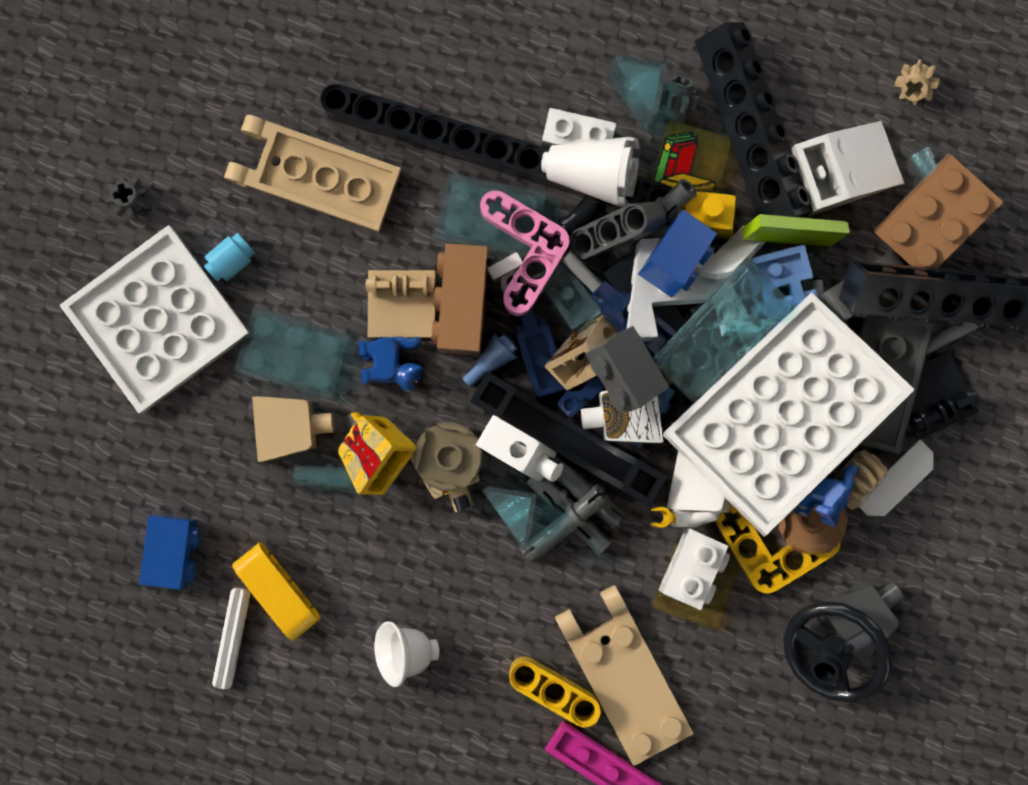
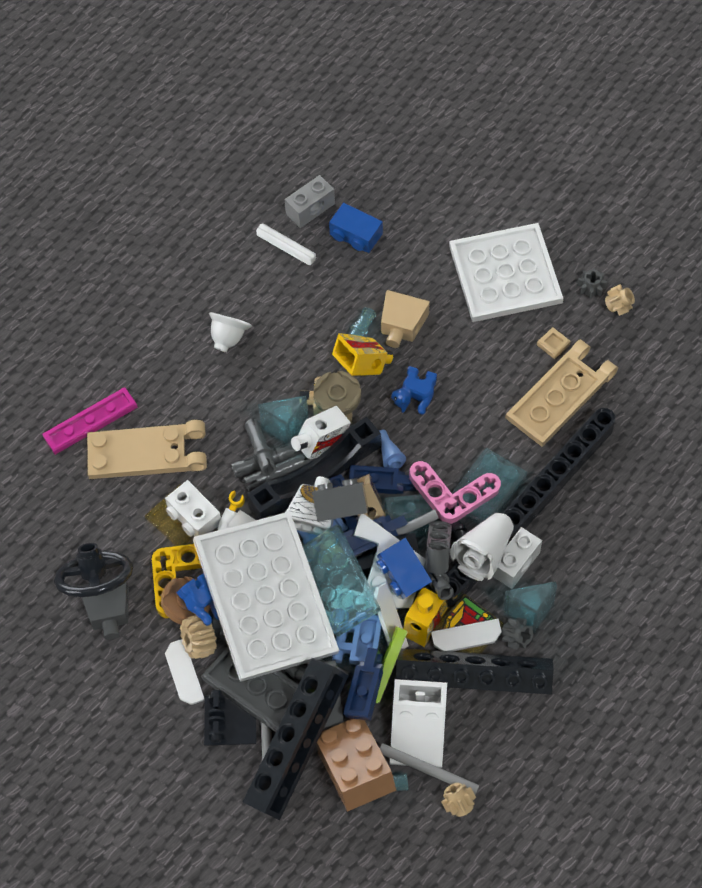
camera: 115 degrees right, 25 degrees down
(140, 149) = (619, 300): none -> tan gear
(151, 634) = (309, 201): none -> light grey brick
(229, 258) = (526, 325): medium azure brick -> none
(239, 215) = (553, 343): none -> tan tile
(275, 593) = (301, 275): yellow beam -> none
(293, 353) = (448, 340): clear light blue plate -> none
(400, 303) = (452, 413): tan hinge -> none
(461, 299) = (434, 440): medium nougat brick -> none
(505, 270) = (446, 477): white tile -> none
(563, 705) = (163, 394): yellow beam -> none
(706, 155) = (467, 636): none -> white piece
(847, 238) = (365, 687): none -> dark blue hinge
(893, 134) = (426, 767): none -> light grey bar

